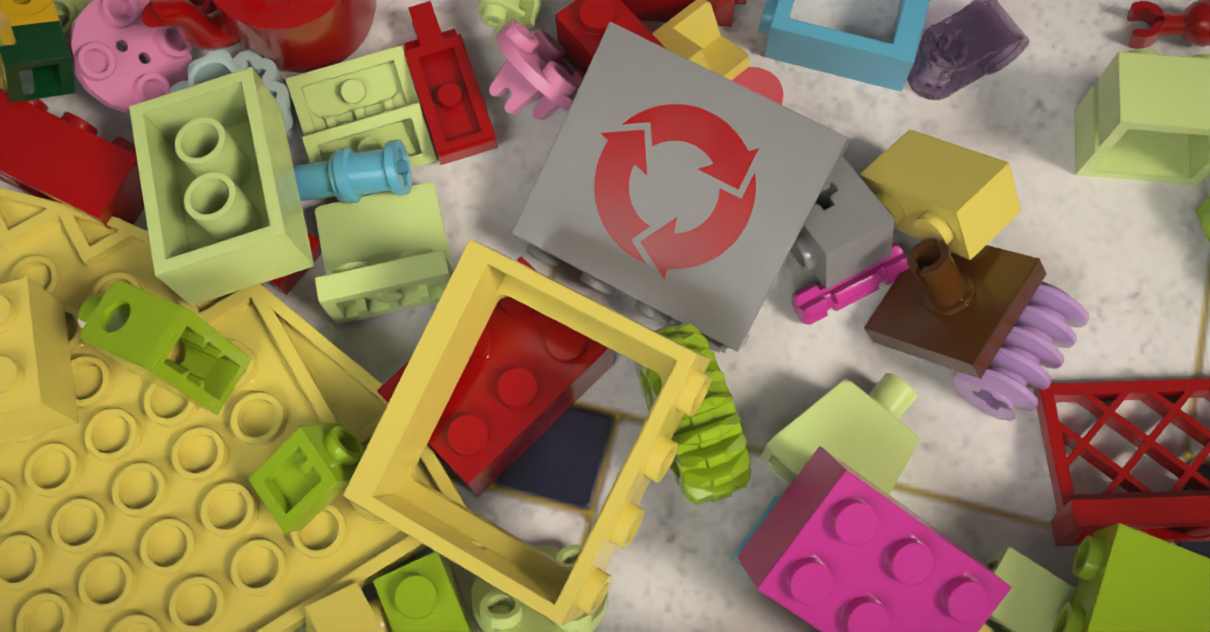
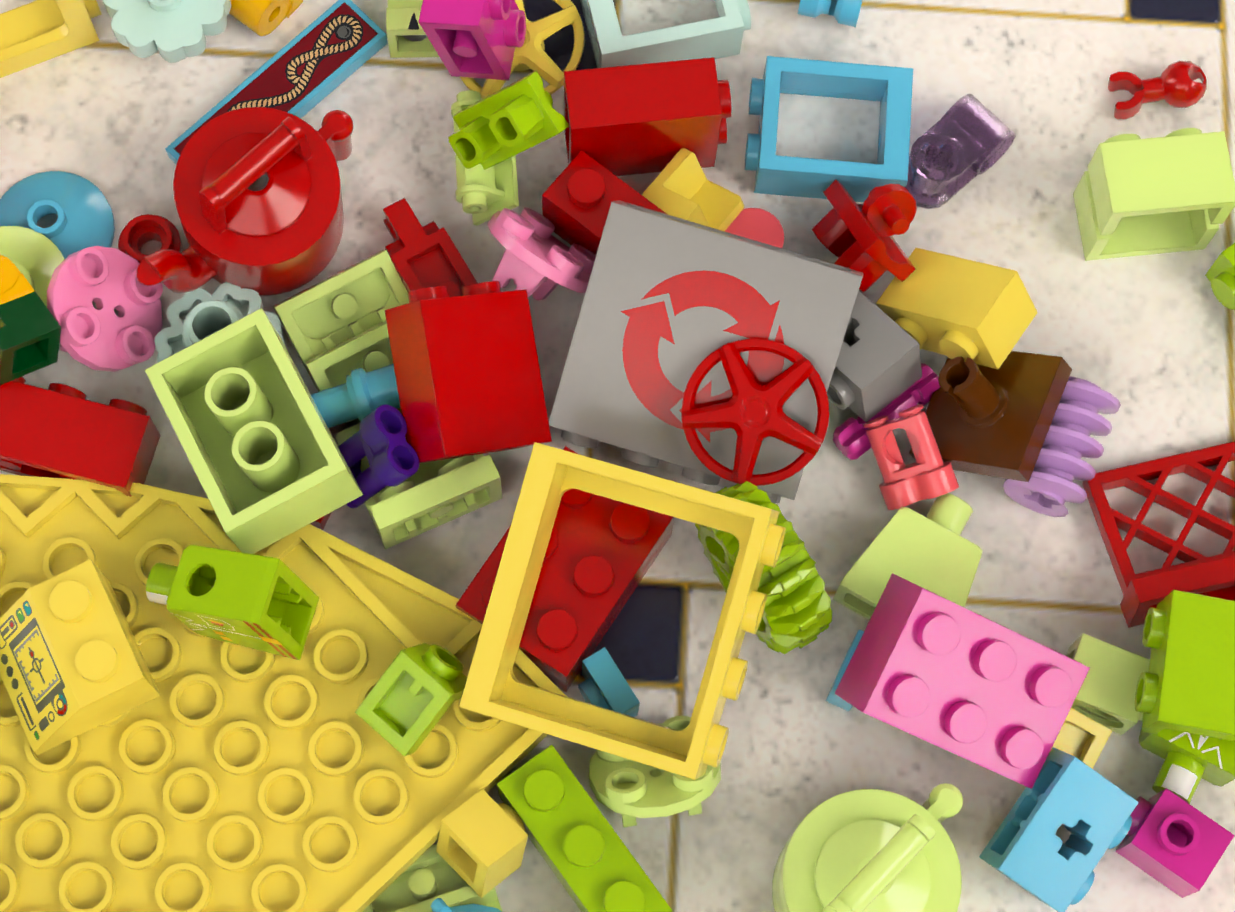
camera: 20 degrees left, 0 degrees up
(339, 230) = (386, 449): none -> dark purple piece
(441, 166) = (467, 371): none -> red brick
(511, 503) = (606, 685): none -> medium azure plate
(713, 255) = (755, 411): none -> red wheel
(863, 107) = (864, 232): none -> red hips
(869, 356) = (916, 481): none -> coral piece

